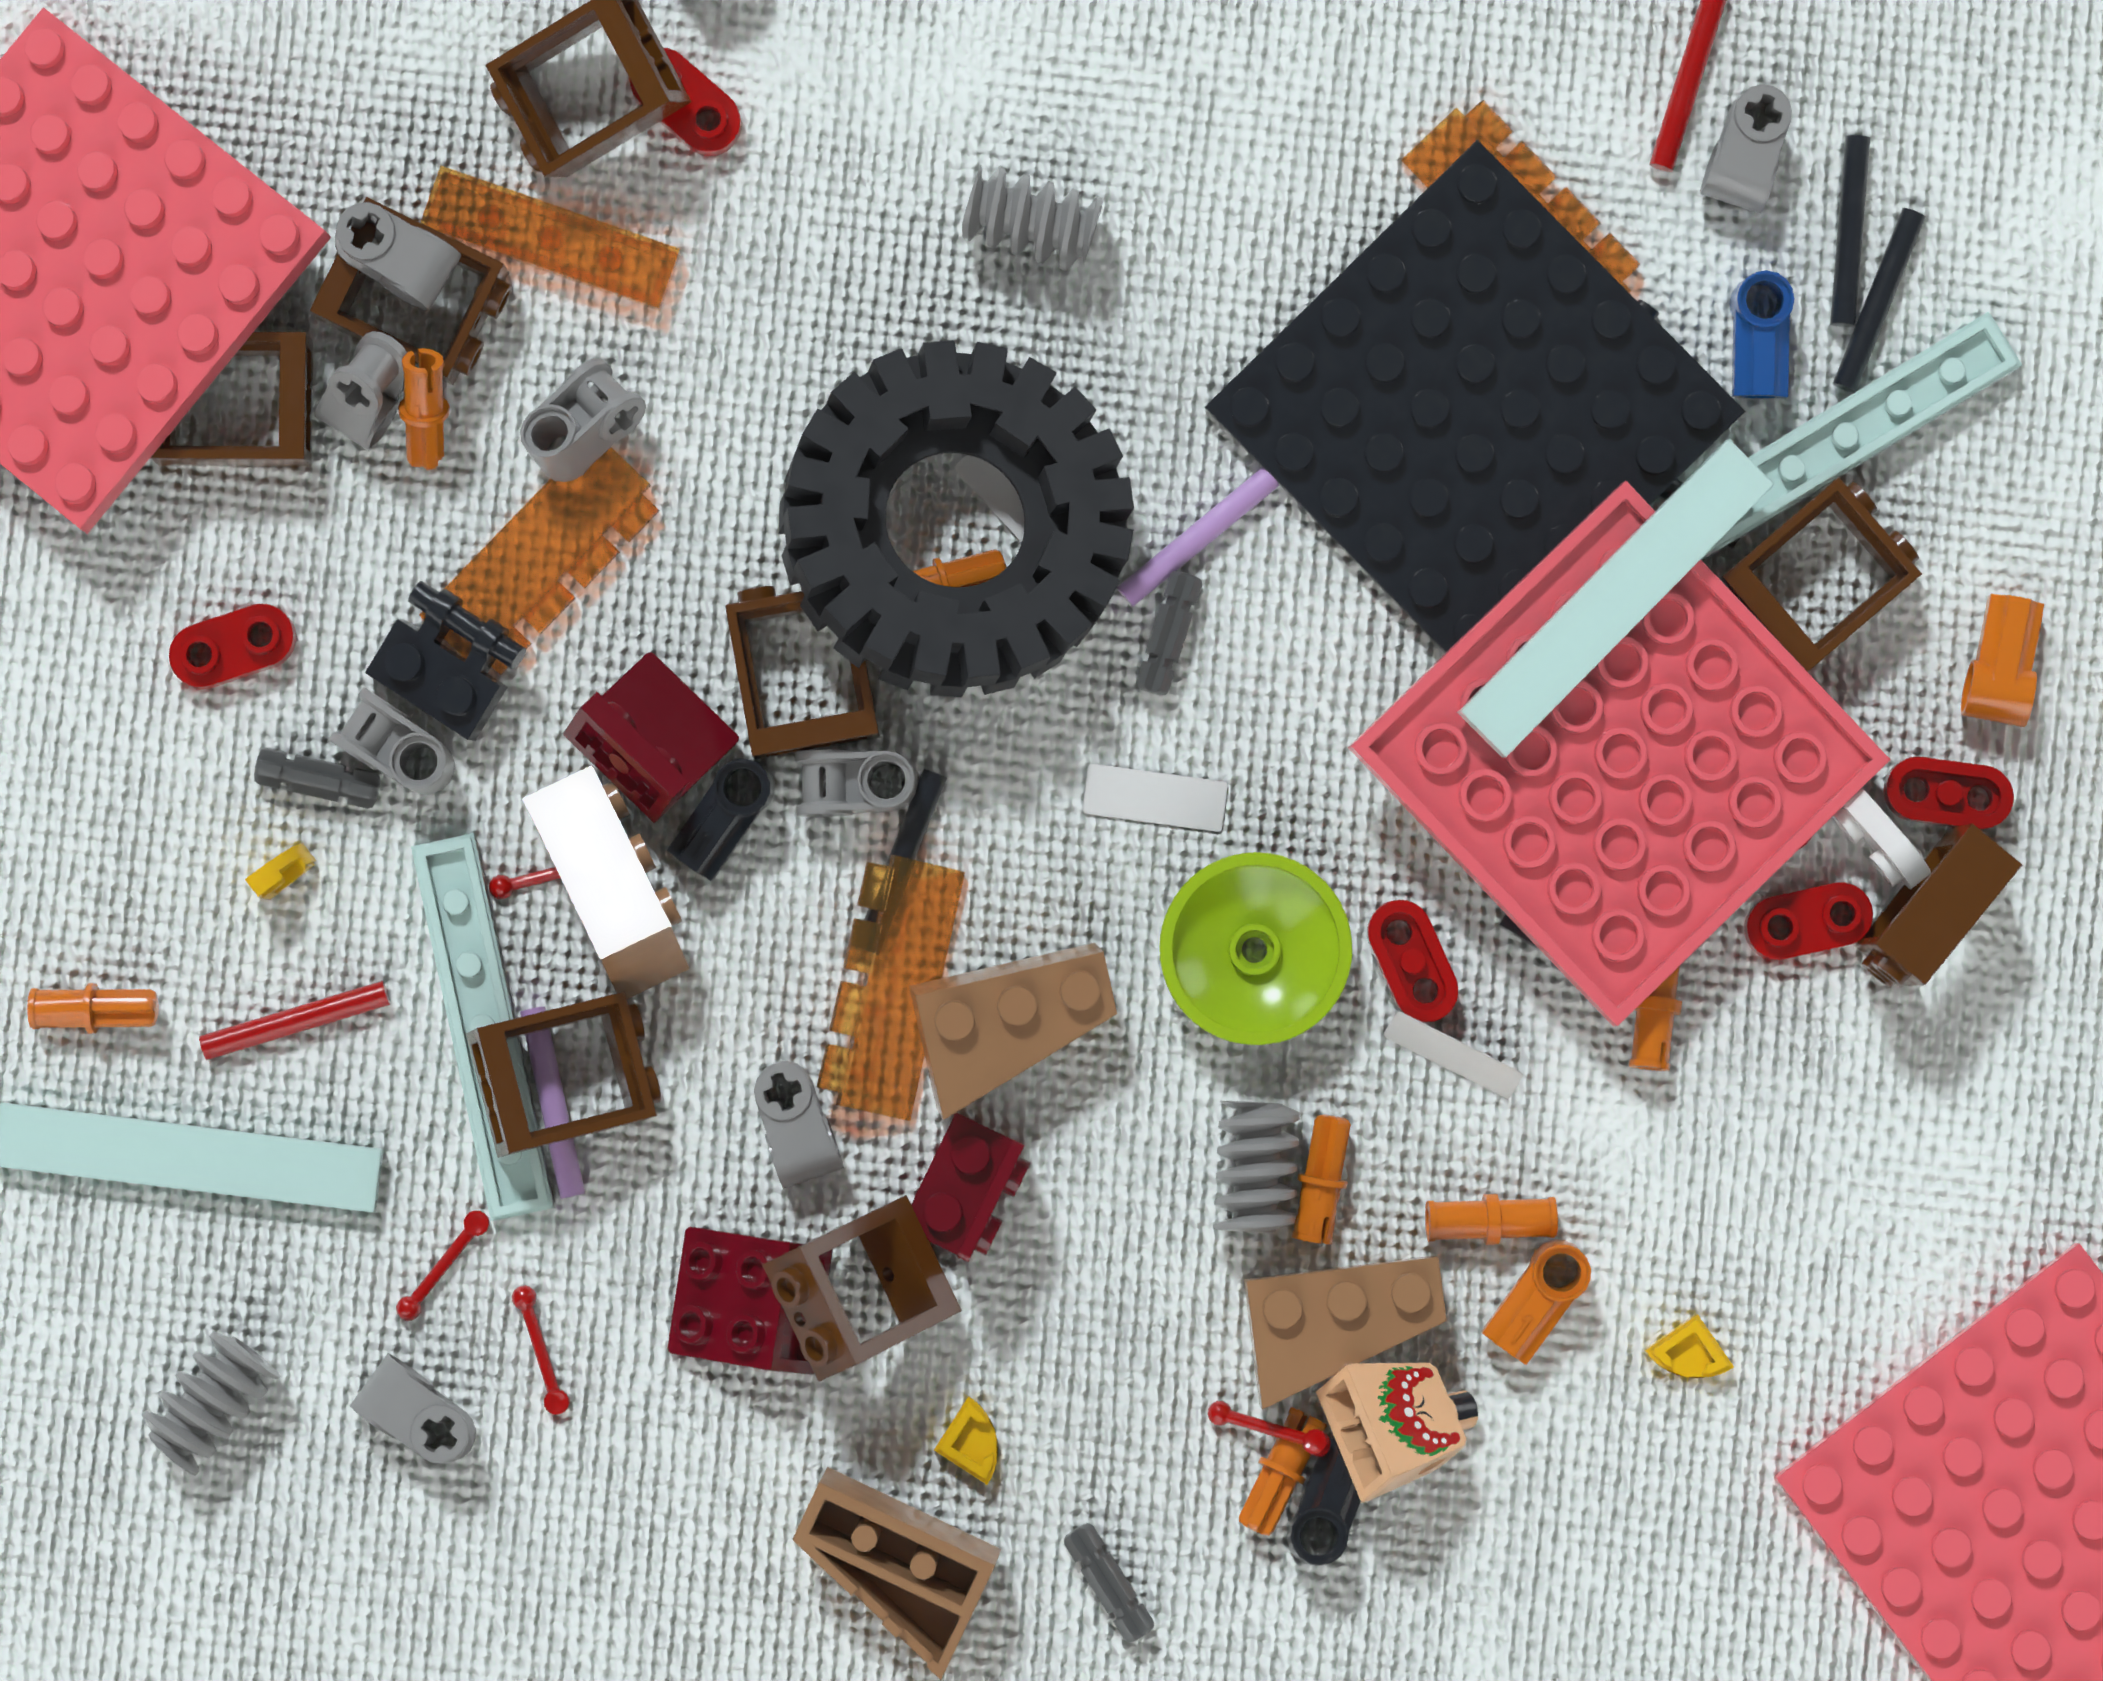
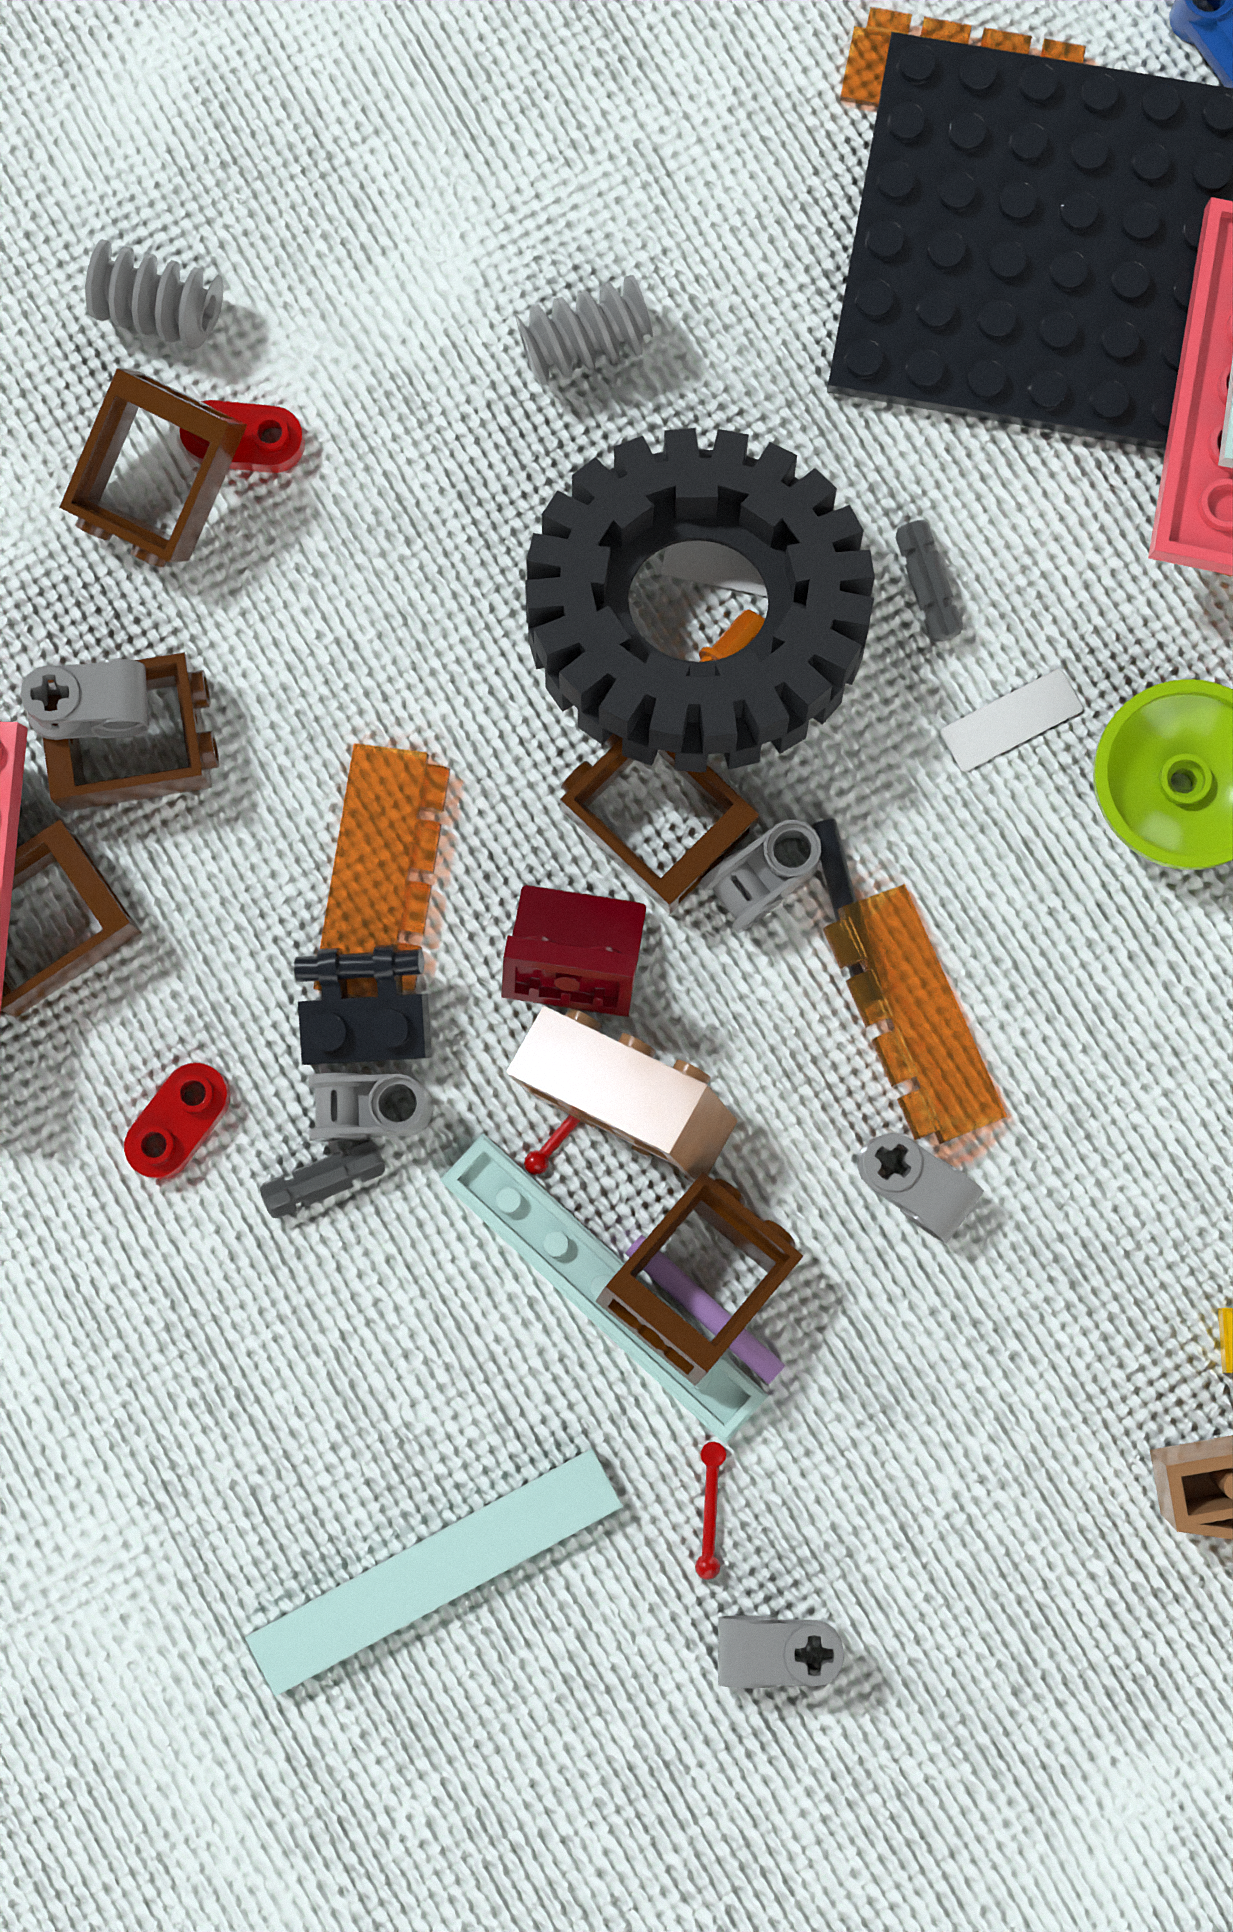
camera: 25 degrees left, 5 degrees down
(92, 1008) = (267, 1502): orange axle -> none
(207, 1400) = (595, 1768): light grey piece -> none
(281, 871) = (346, 1276): yellow tile -> none
(294, 1020) = (443, 1393): red bar -> none
(365, 393) = (142, 833): light grey piece -> none
(424, 408) = (200, 813): orange axle -> none
(551, 238) = (214, 612): clear orange tile -> none
(556, 1399) = (884, 1555): red hinge -> none
(583, 418) = (338, 734): light grey piece -> none
(719, 822) = (679, 981): black piece -> none
(728, 1303) = (985, 1358): dark red bracket -> none
(906, 1272) = (1098, 1241): reddish brown window -> none
(965, 1186) = (1101, 1135): dark red bracket -> none
(1006, 1019) = (1030, 976): medium nougat wedge -> none
(1198, 536) = (897, 486): lavender bar -> none

